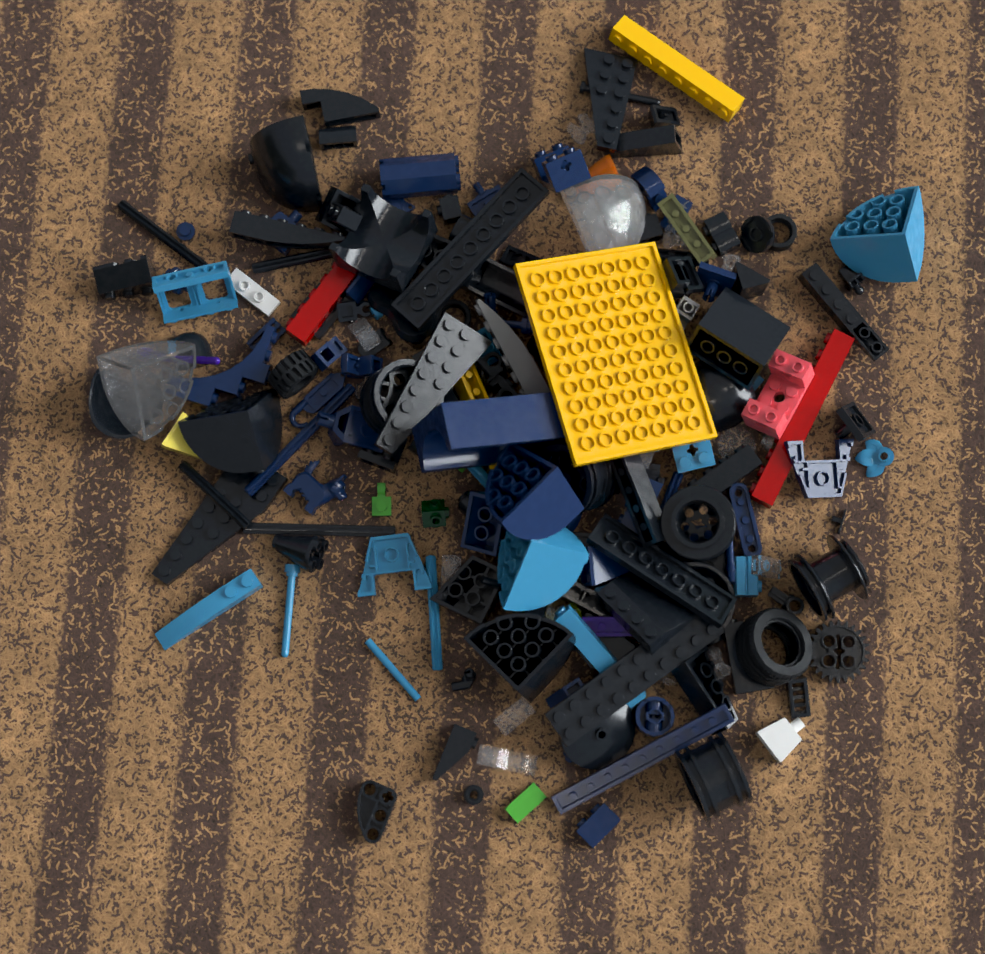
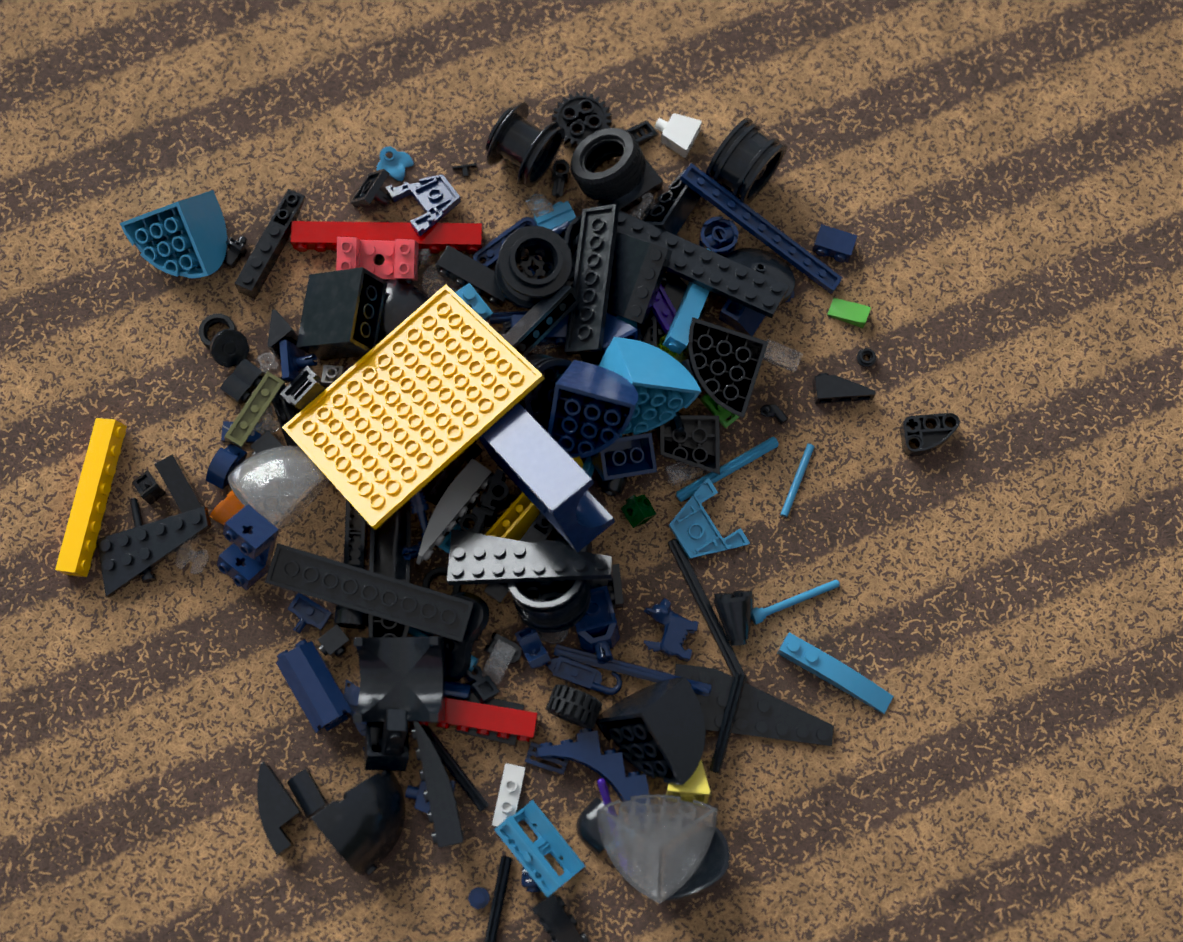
camera: 120 degrees left, 5 degrees down
(328, 353) = (536, 685): dark blue brick -> none
(381, 505) = (652, 565): bright green plate -> none
(507, 760) = (822, 343): clear slope -> none

